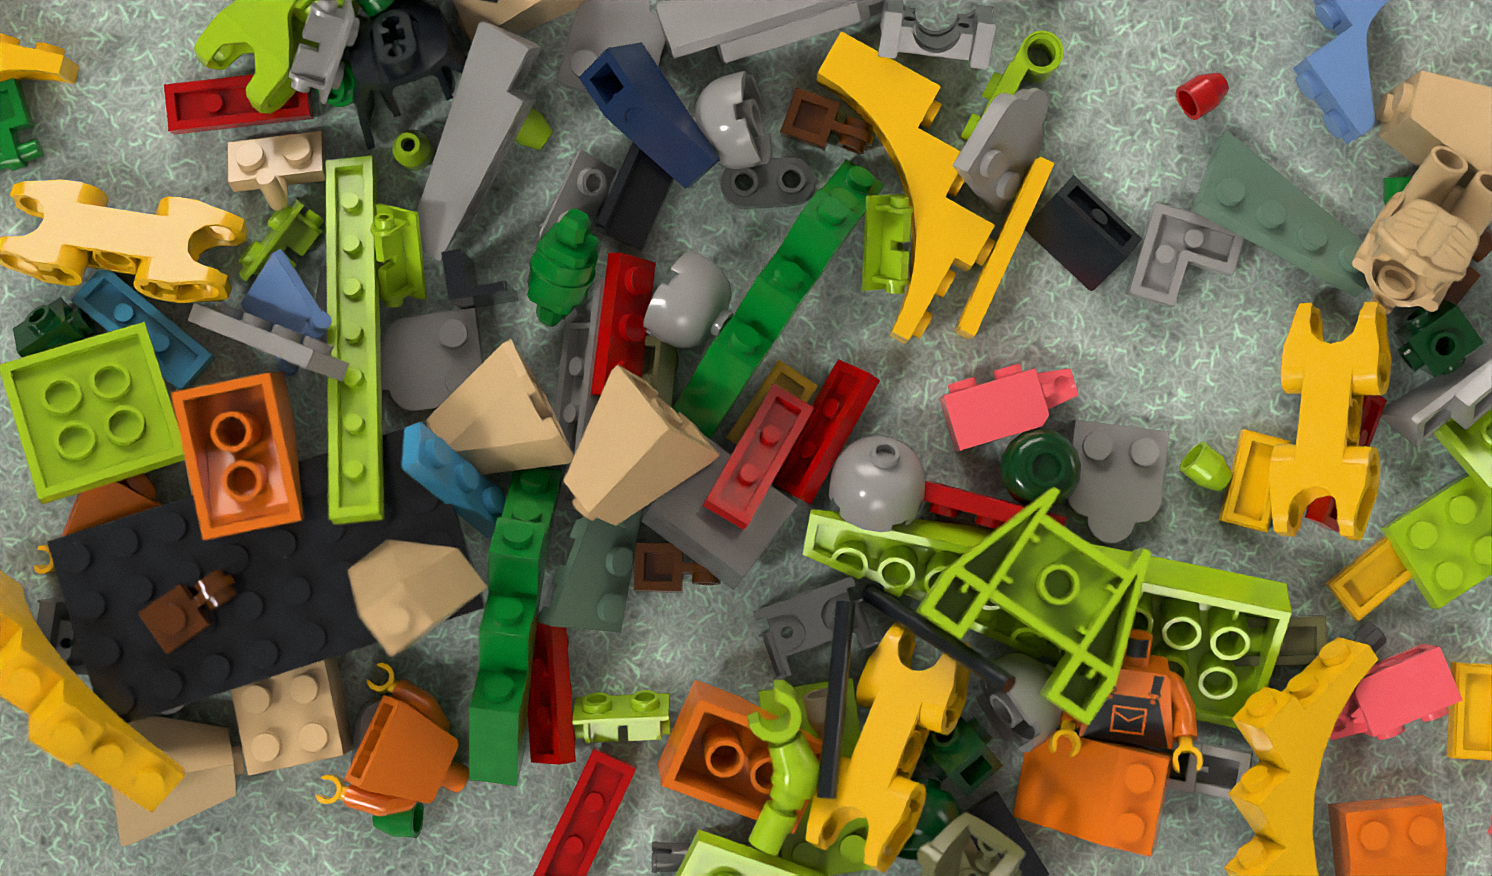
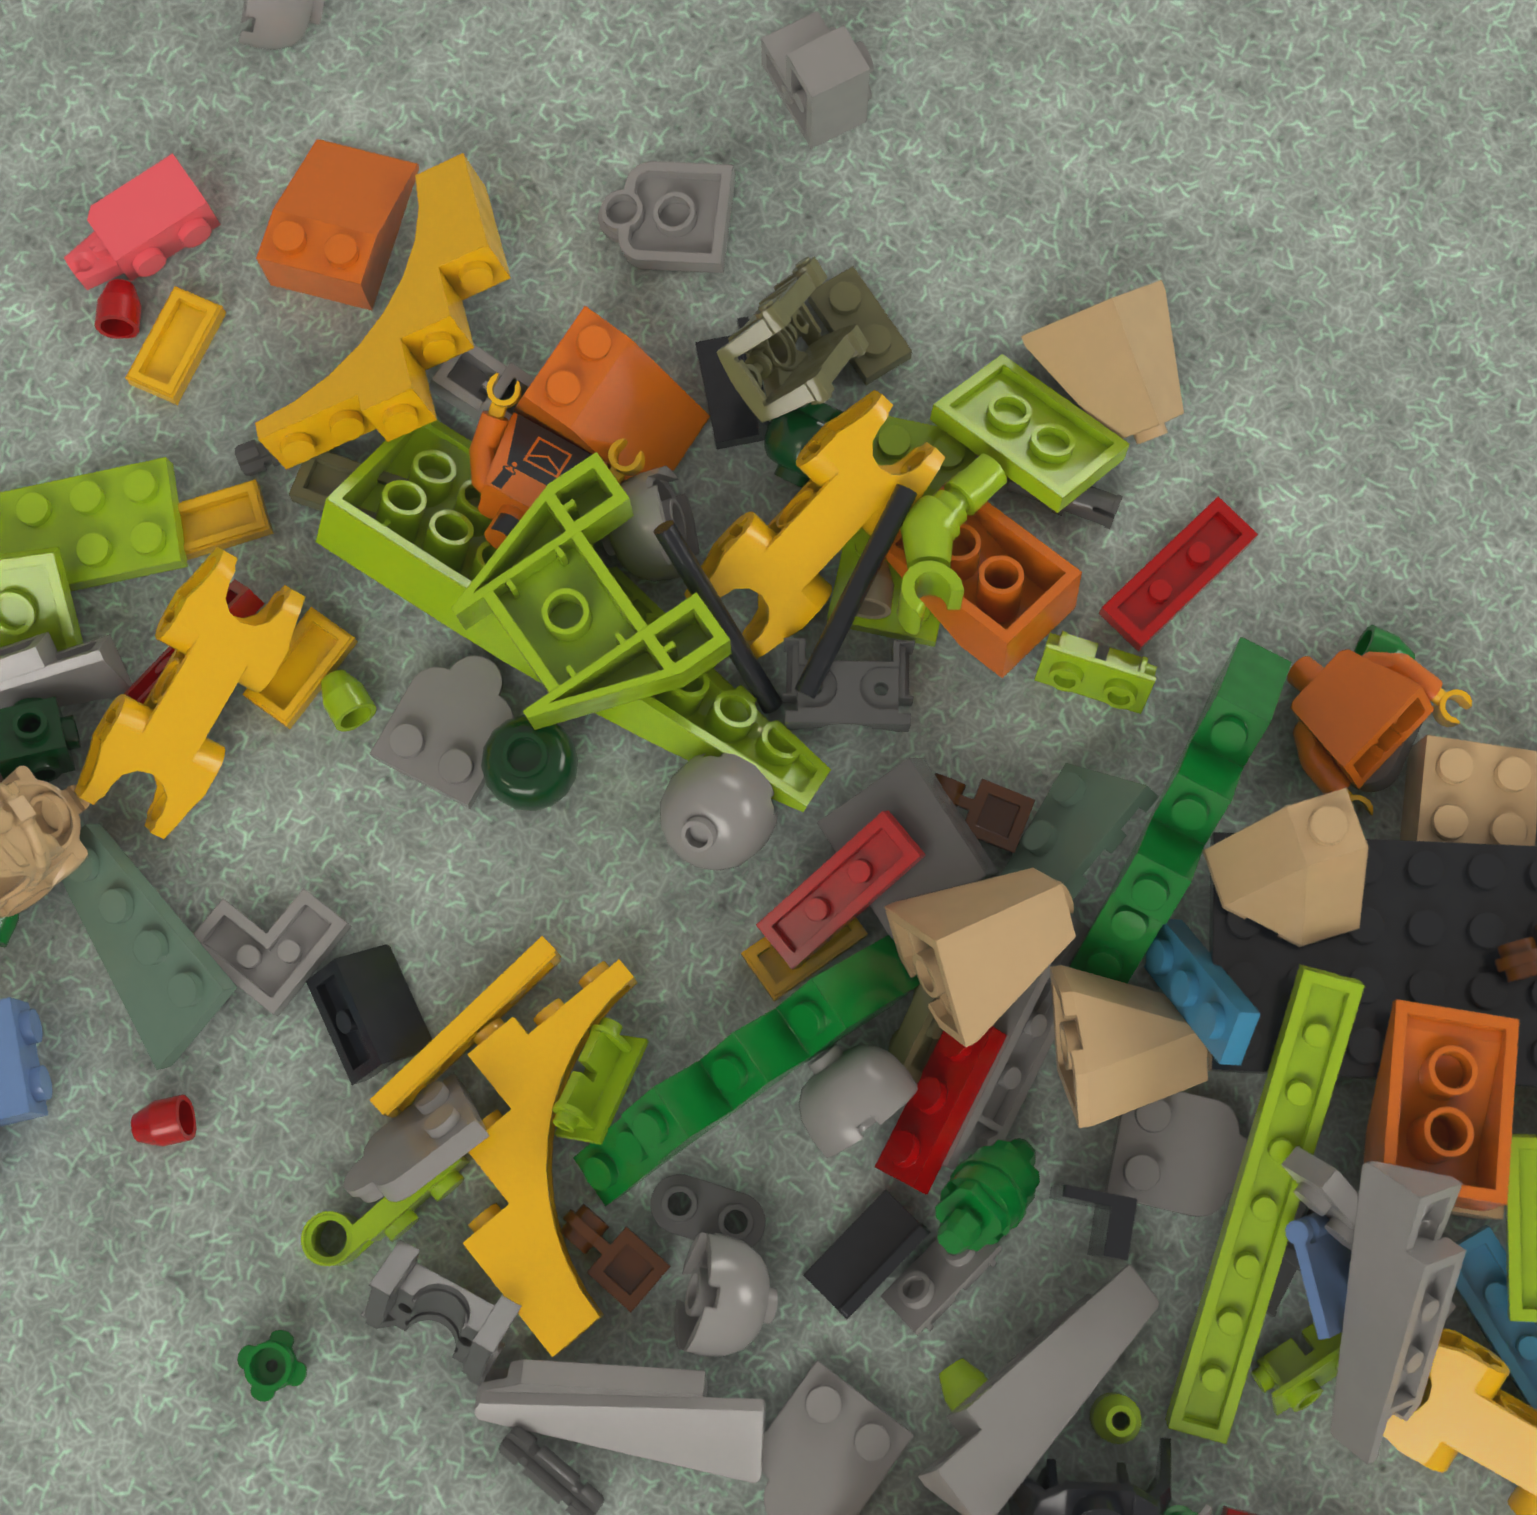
camera: 155 degrees left, 10 degrees down
(234, 297) = (1394, 1300): none -> light grey wedge
(276, 163) = (1288, 1463): tan plate -> none
(400, 249) = (1174, 1289): lime hinge -> none
(550, 699) = (1171, 712): red plate -> none
(649, 112) = (819, 1346): dark blue slope -> none
(826, 430) = (731, 912): red plate -> none
(962, 755) = (738, 486): dark green brick -> none
(989, 510) = (604, 740): red plate -> none
(1003, 406) = (540, 849): coral hinge -> none
(1398, 692) = (236, 389): coral hinge -> none

